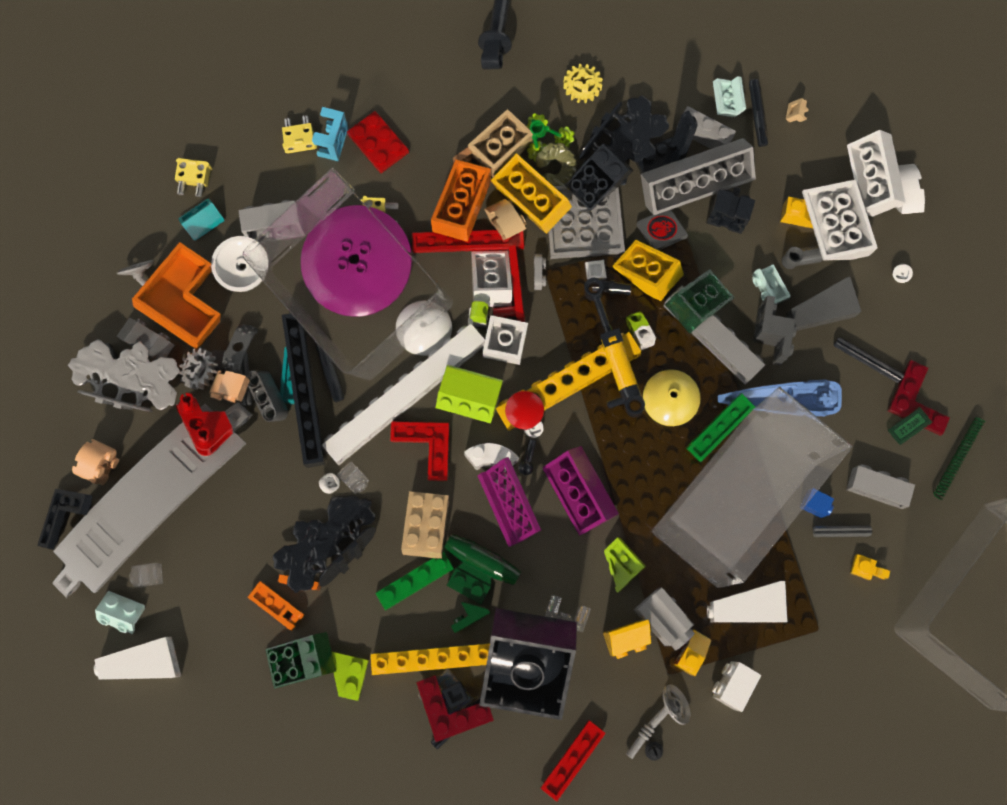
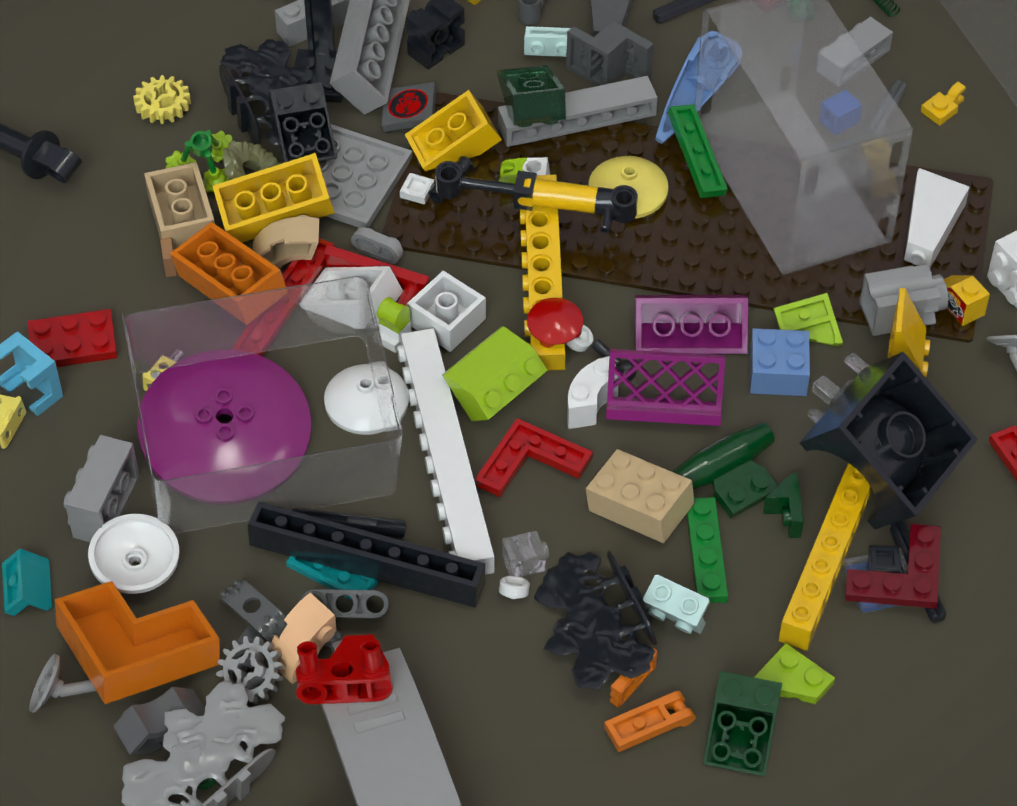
camera: 60 degrees left, 25 degrees down
(354, 584) = (676, 603): none -> light aqua bracket
(577, 560) = (779, 362): none -> medium blue brick

